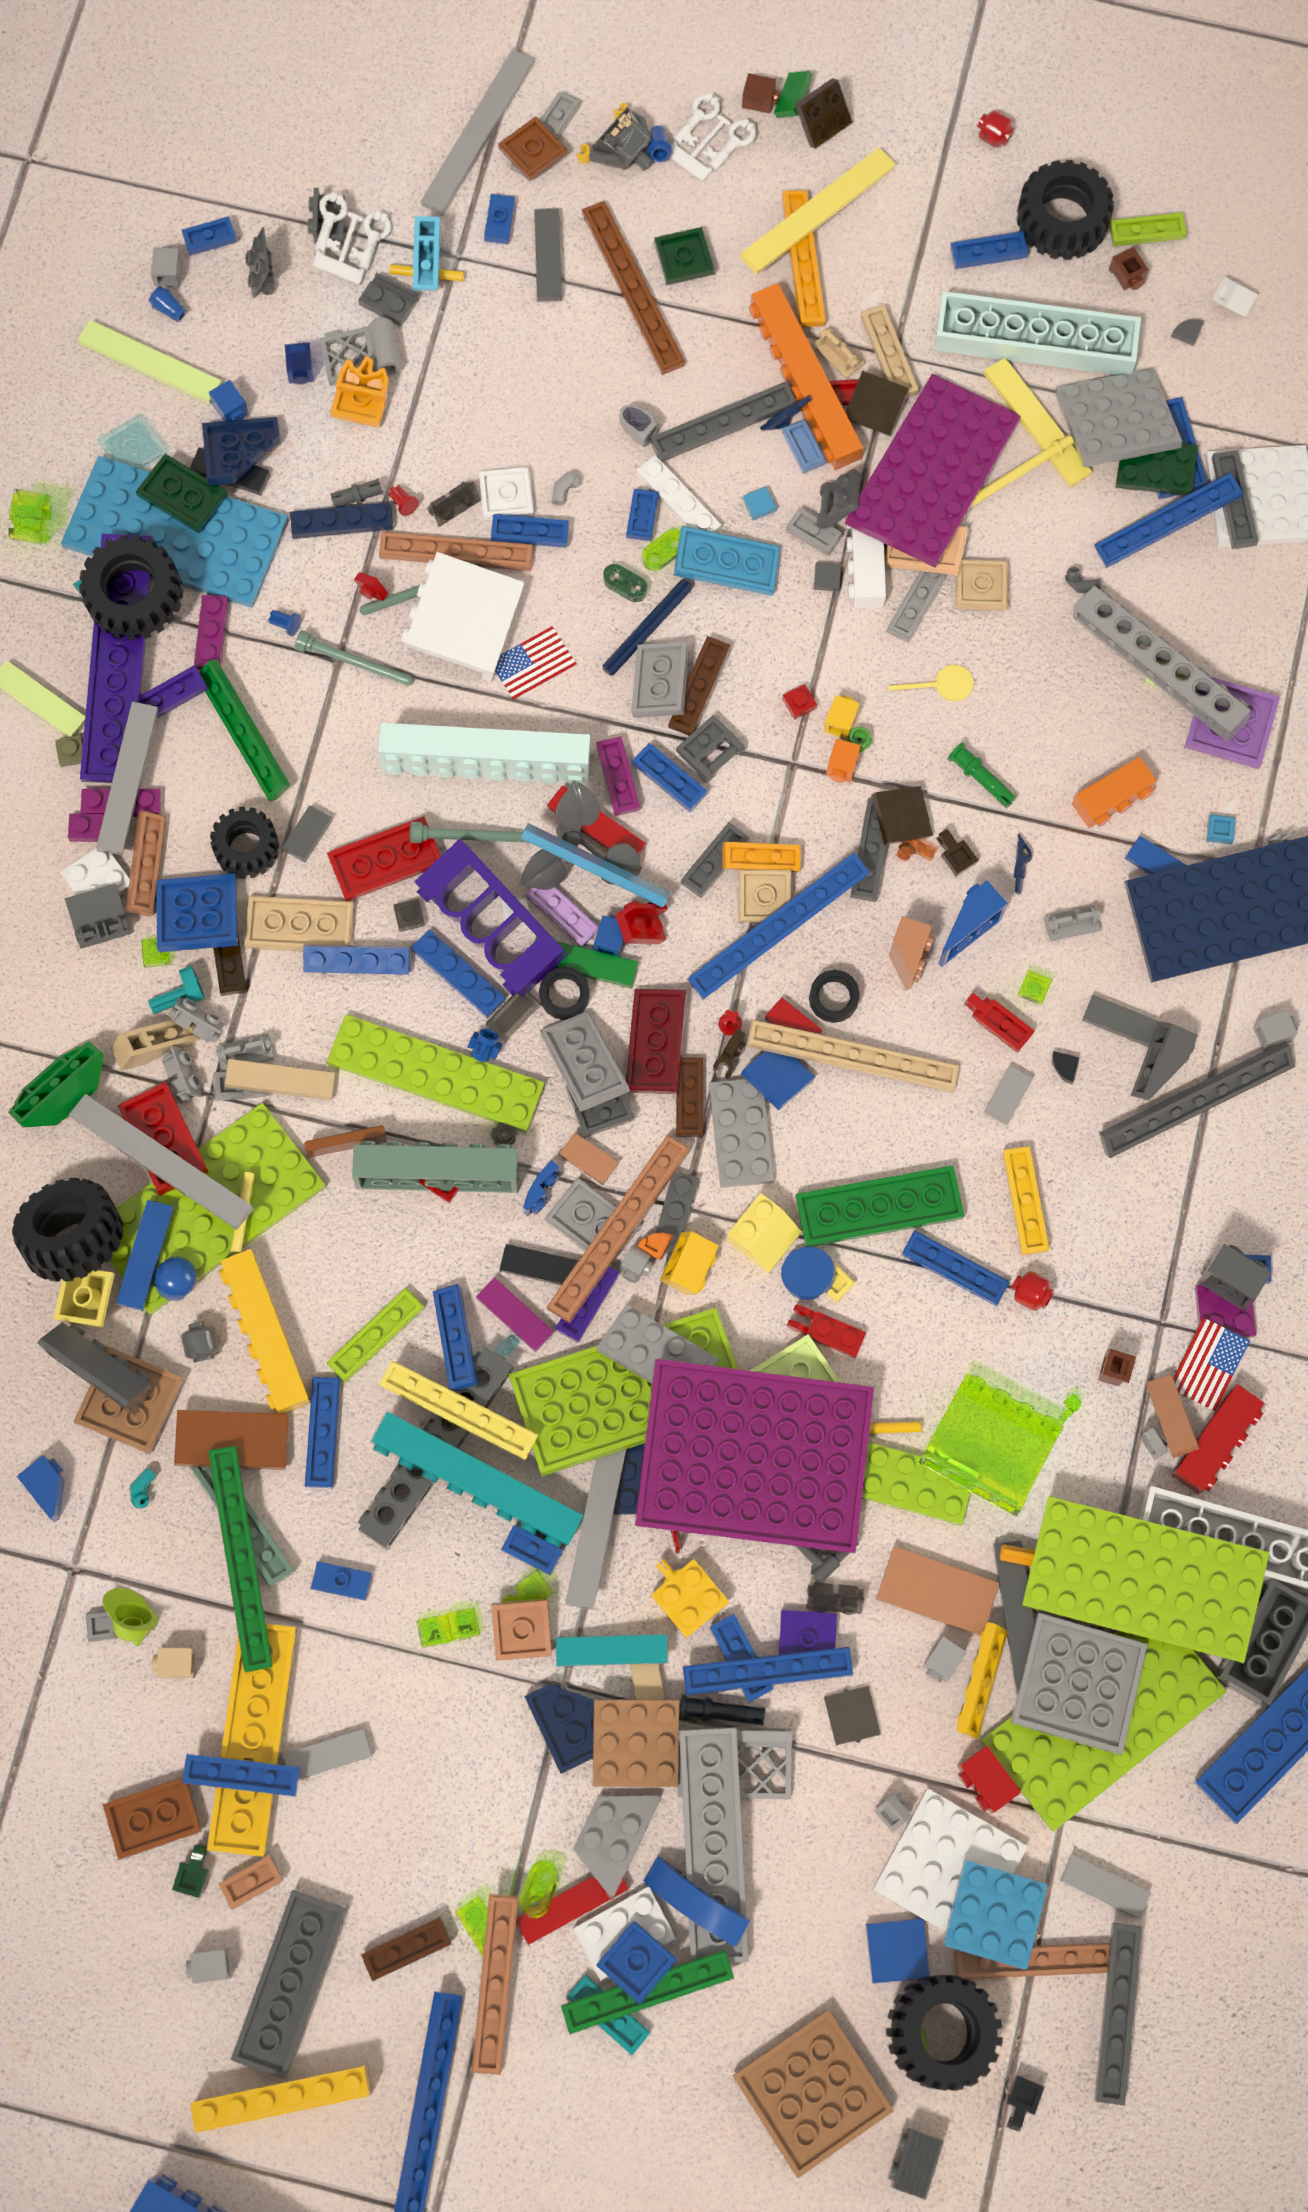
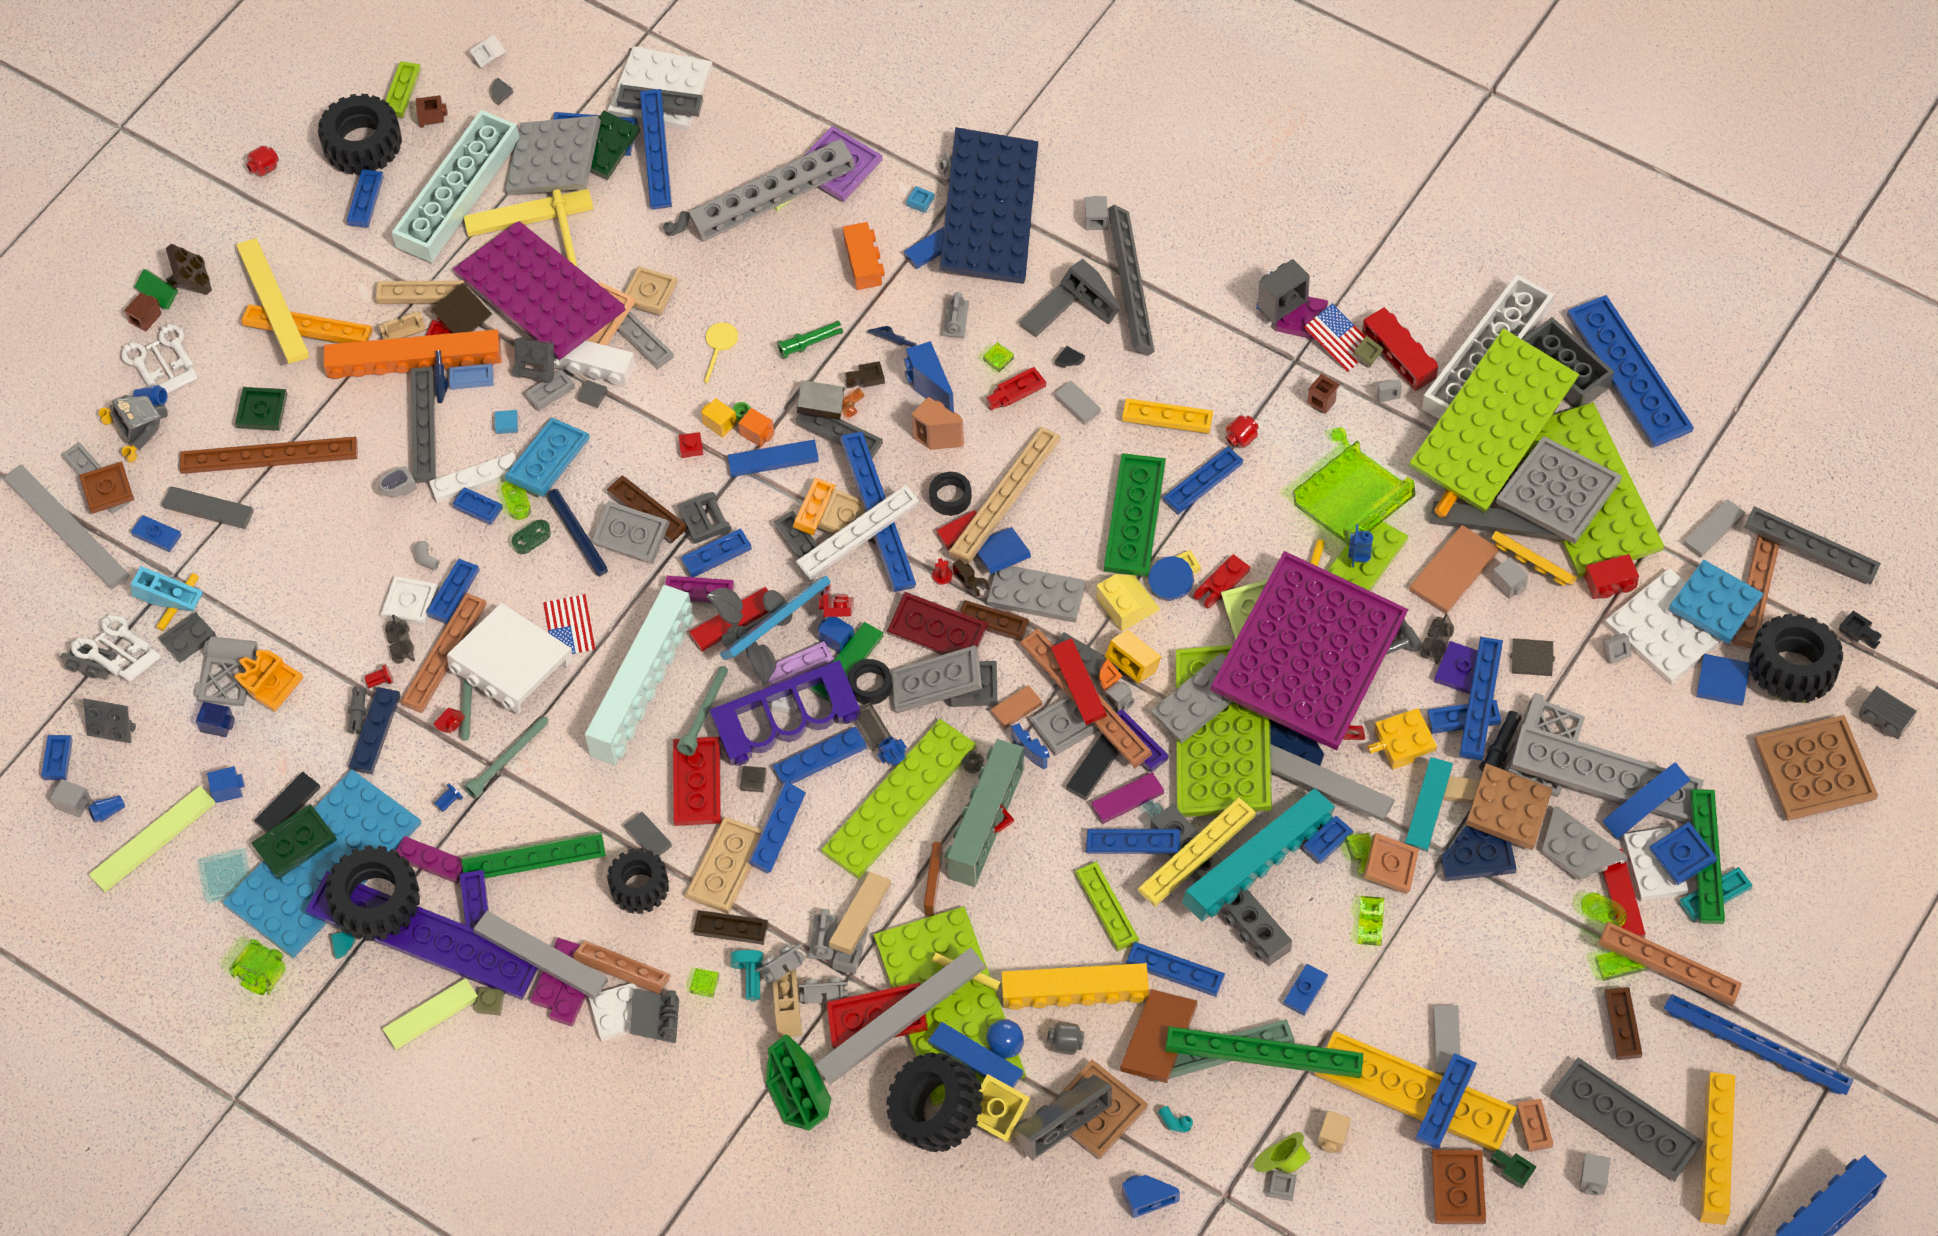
camera: 65 degrees left, 15 degrees down
(197, 912) = (685, 935): blue plate -> none
(237, 446) = (270, 788): dark blue plate -> none
(630, 1213) = (1079, 681): none -> red tile
(739, 914) = (857, 532): none -> white tile
(813, 793) = (773, 458): none -> blue tile
(910, 1471) = (1360, 546): none -> blue hinge
(1172, 1416) = (1372, 370): nougat tile -> none
(1200, 1403) = (1368, 351): none -> olive plate

